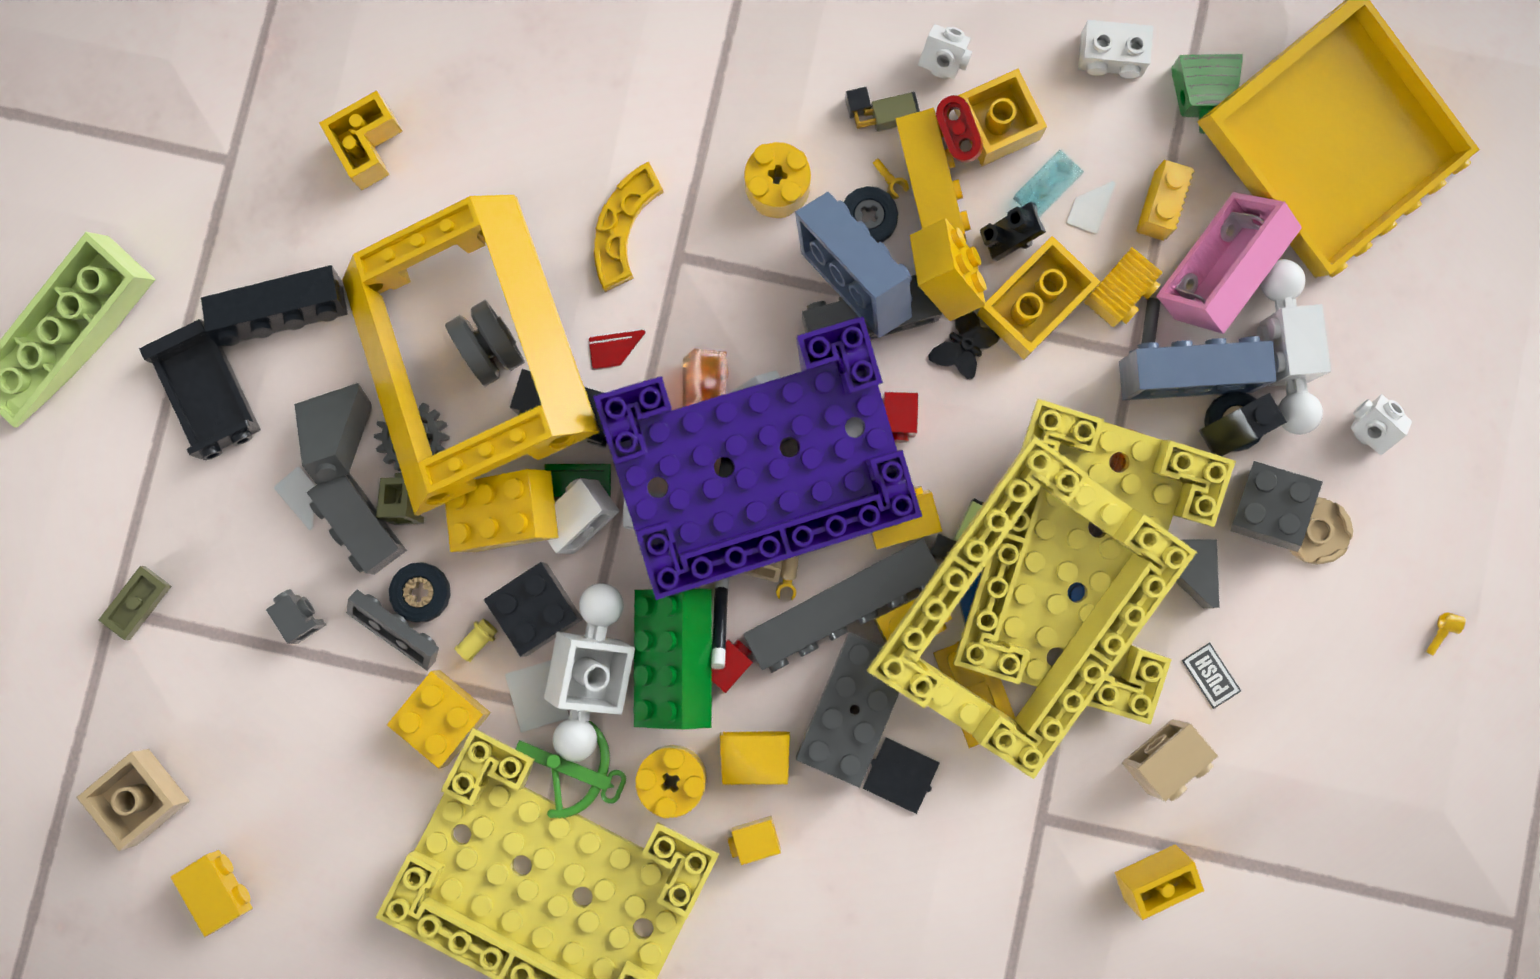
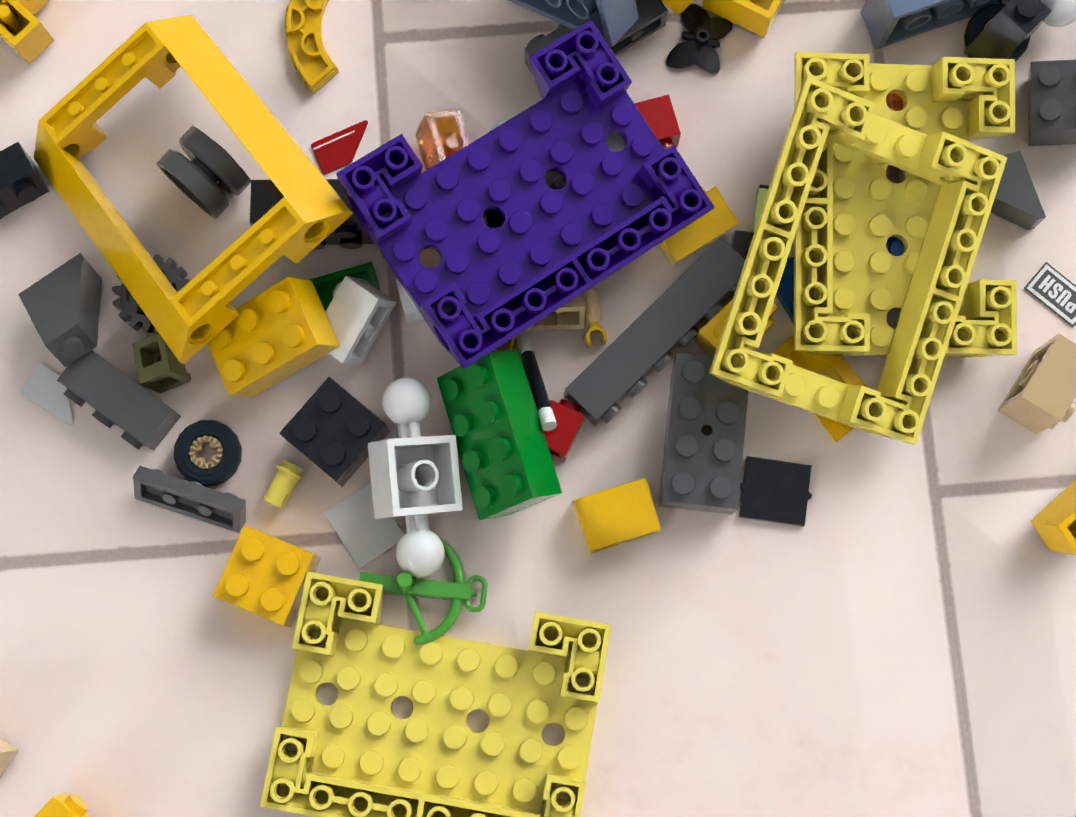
camera: 20 degrees left, 5 degrees down
(294, 617) = (80, 517): dark grey brick -> none
(665, 800) = (536, 543): yellow brick -> none
(754, 840) = (643, 603): yellow brick -> none

